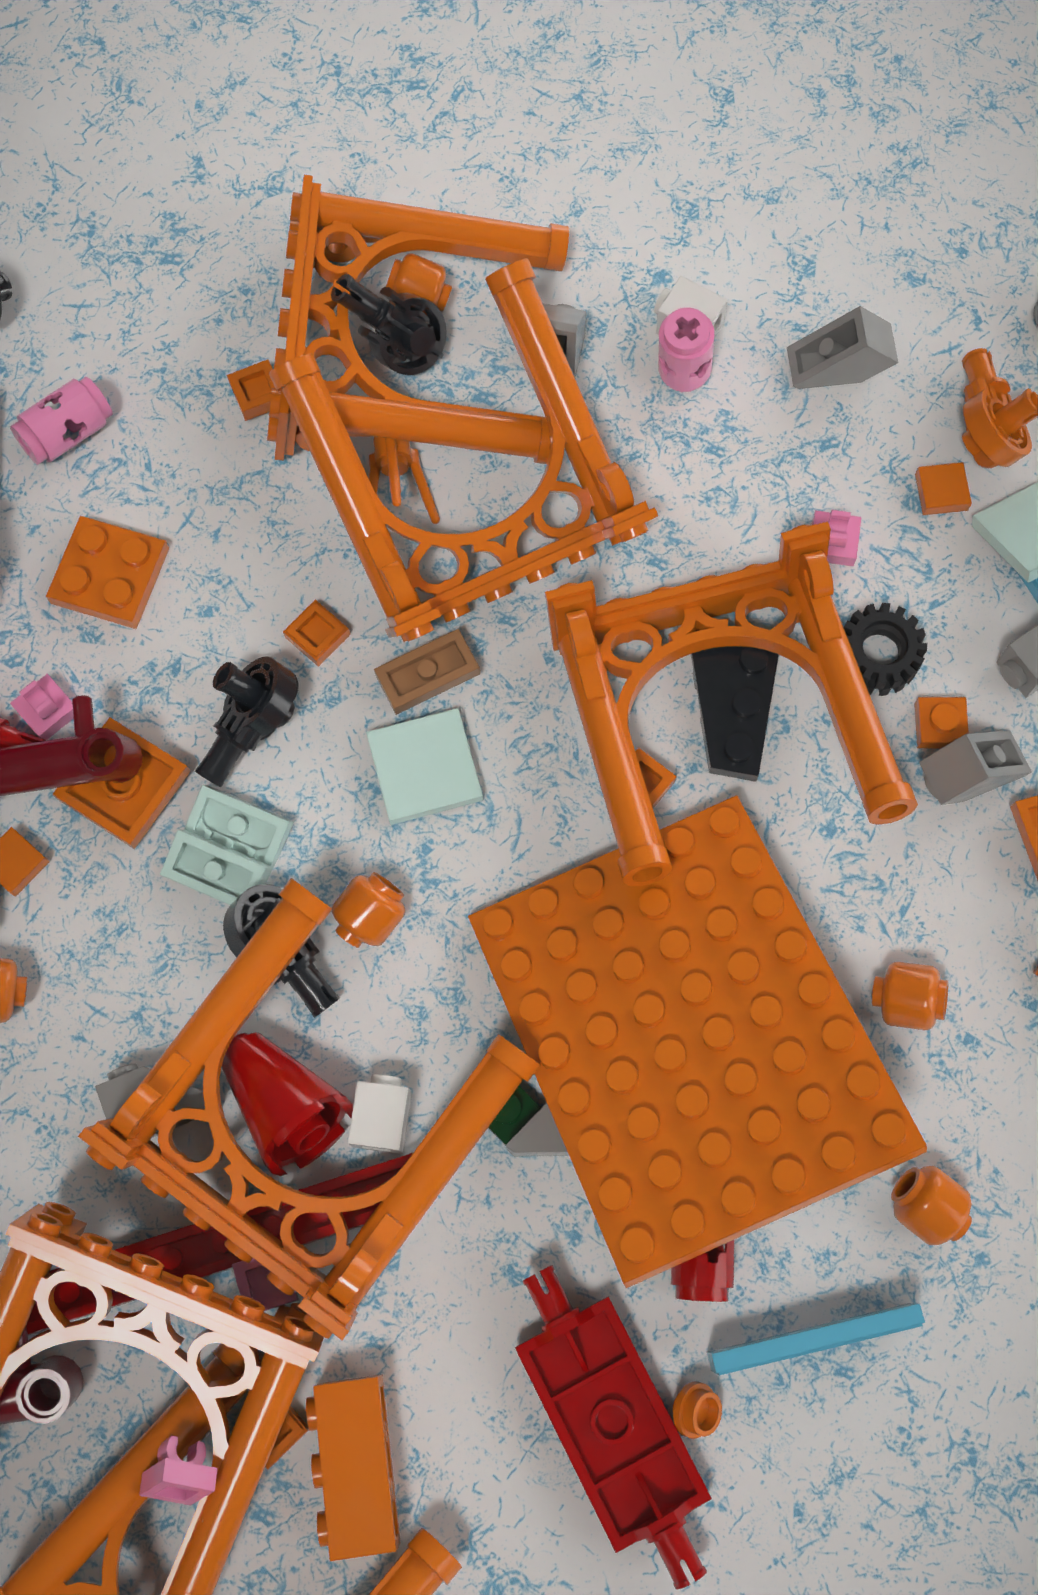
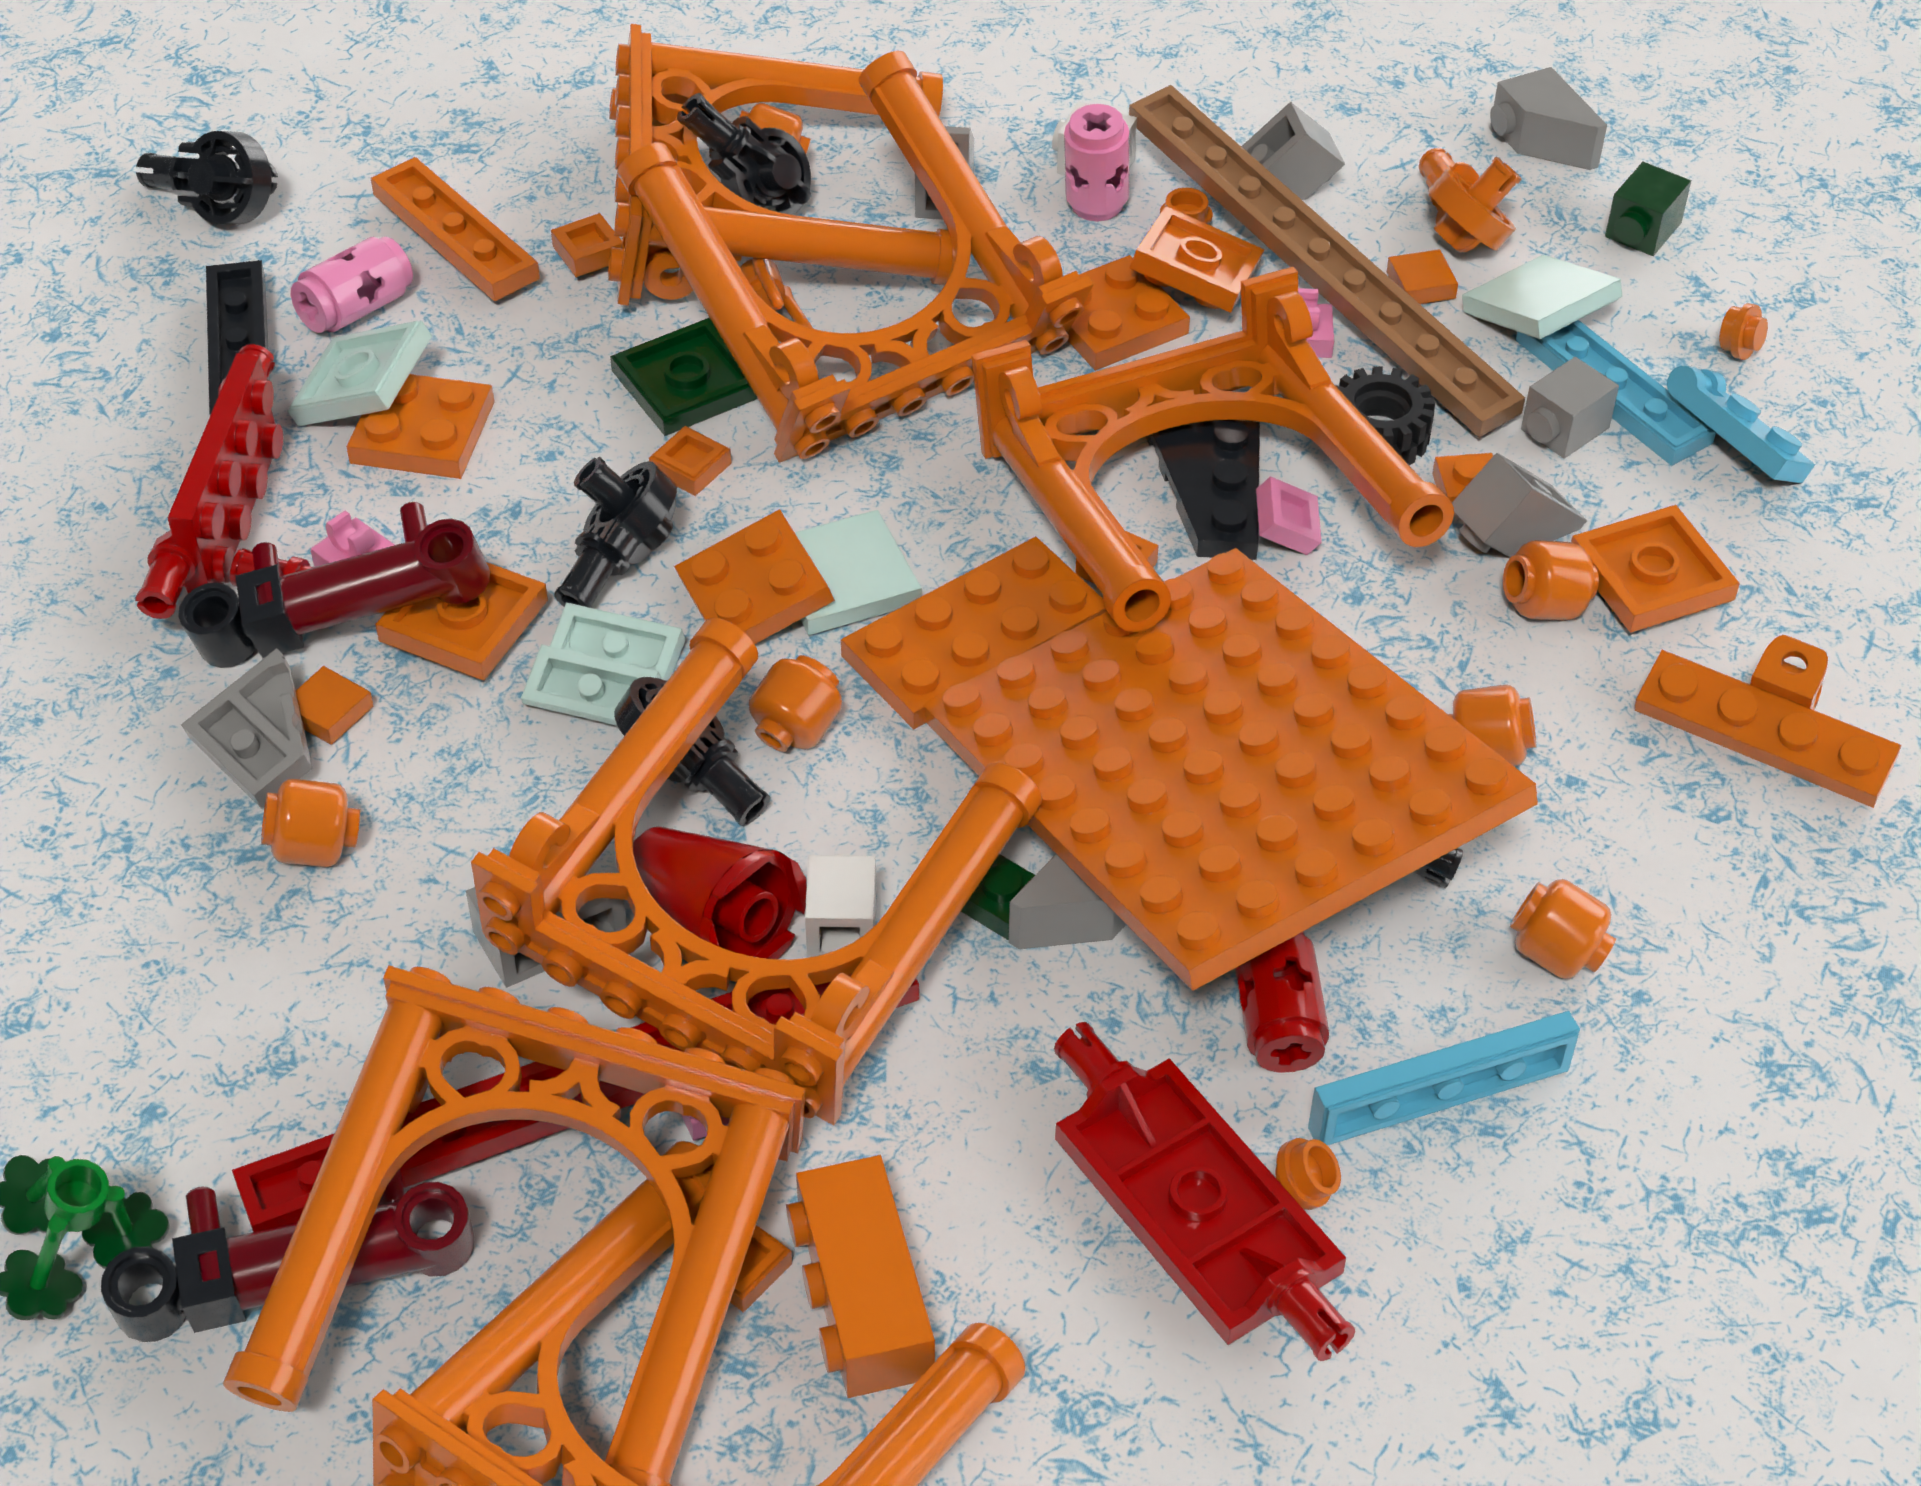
camera: 10 degrees left, 25 degrees down
(60, 522) = (360, 373): none -> light aqua tile
(150, 360) = (455, 229): none -> orange plate
(176, 1479) = (632, 1265): bright pink tile -> none
(314, 544) = (683, 377): none -> dark green tile
(350, 778) = (756, 579): none -> orange plate
(427, 671) = (833, 479): medium nougat plate -> none
(518, 838) = (969, 627): none -> orange plate
(687, 499) = (1124, 316): none -> orange plate
(755, 462) = (1196, 259): none -> orange plate
(759, 387) = (1189, 202): none -> orange plate
(787, 752) = (1288, 515): none -> bright pink plate
(862, 471) = (1328, 262): none -> medium nougat plate
(988, 845) = (1550, 580): none -> orange head

